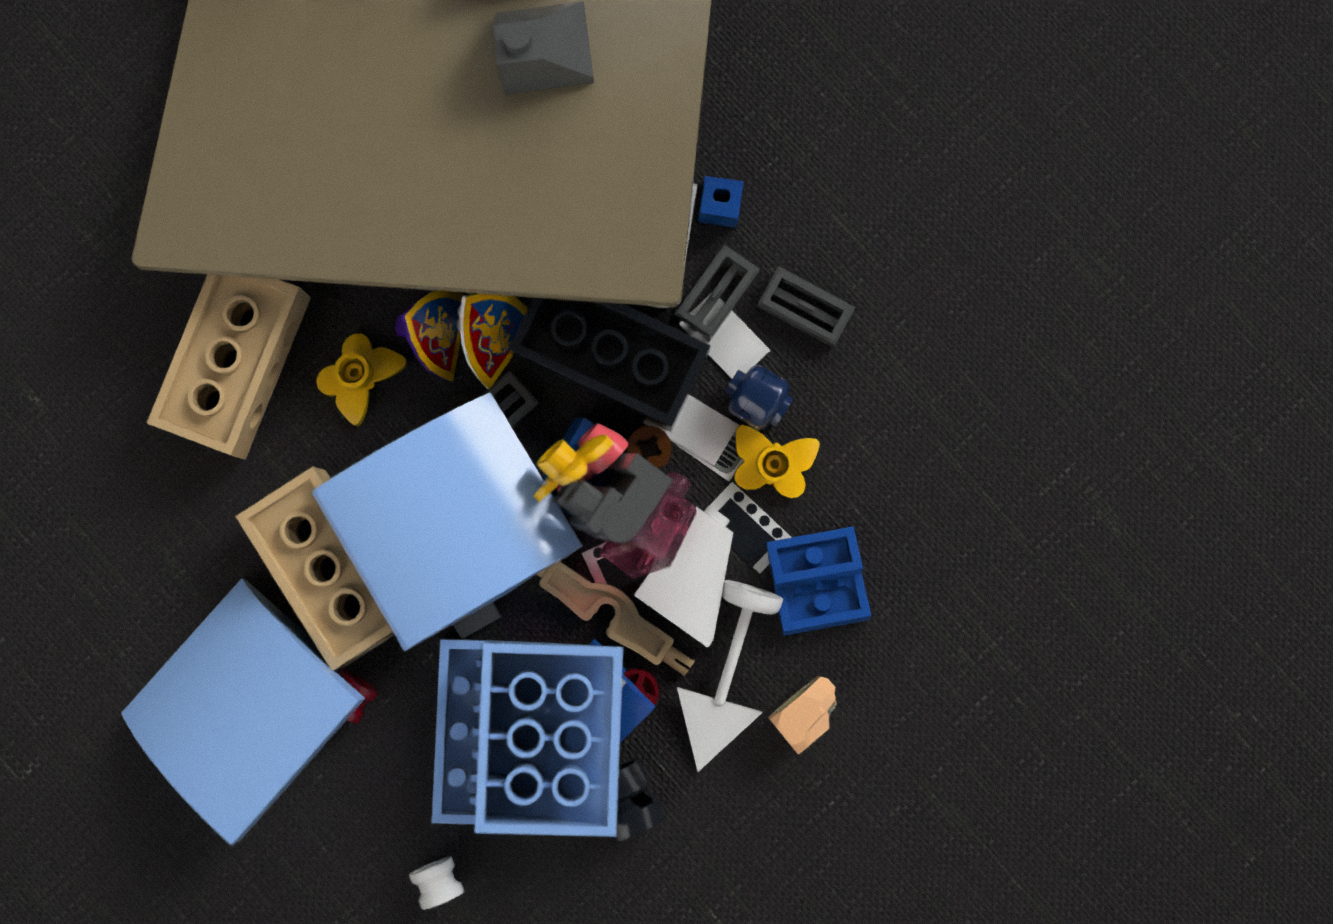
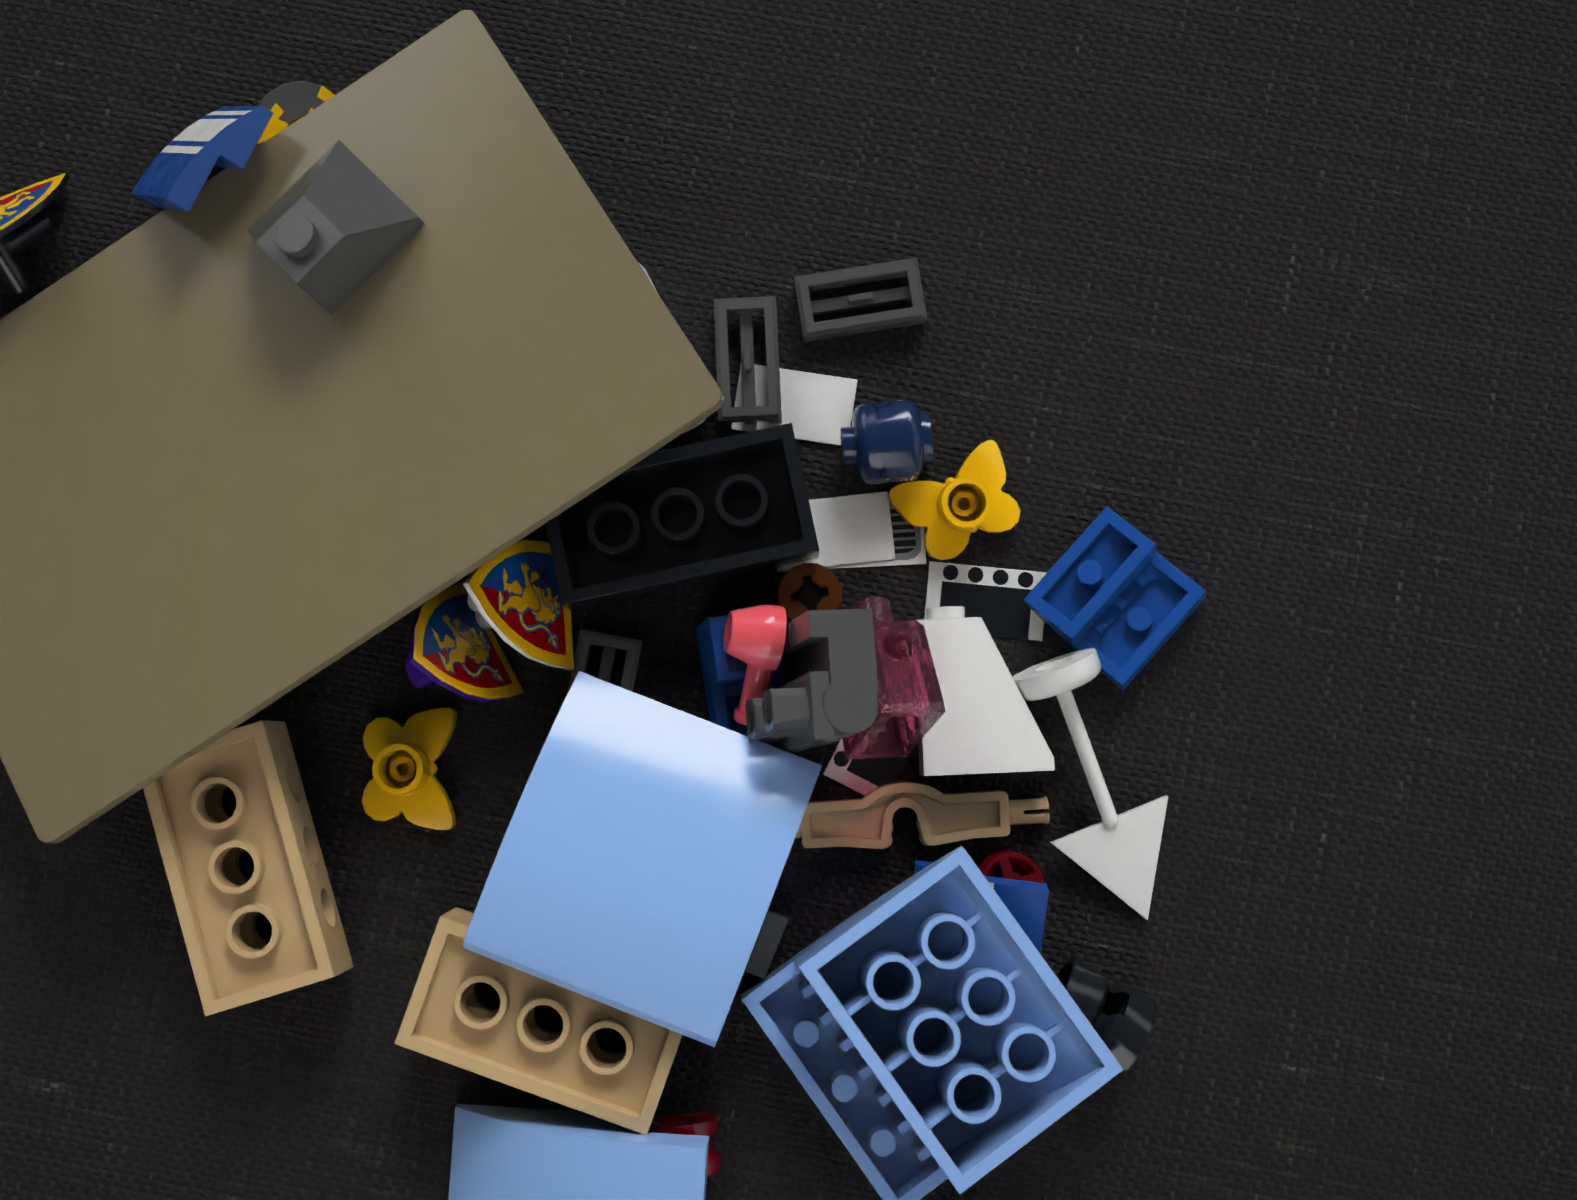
camera: 30 degrees left, 0 degrees up
(565, 465) = (737, 687): yellow animal -> none
(720, 212) = (679, 267): blue piece -> none
(806, 713) = (1219, 759): light nougat rock -> none

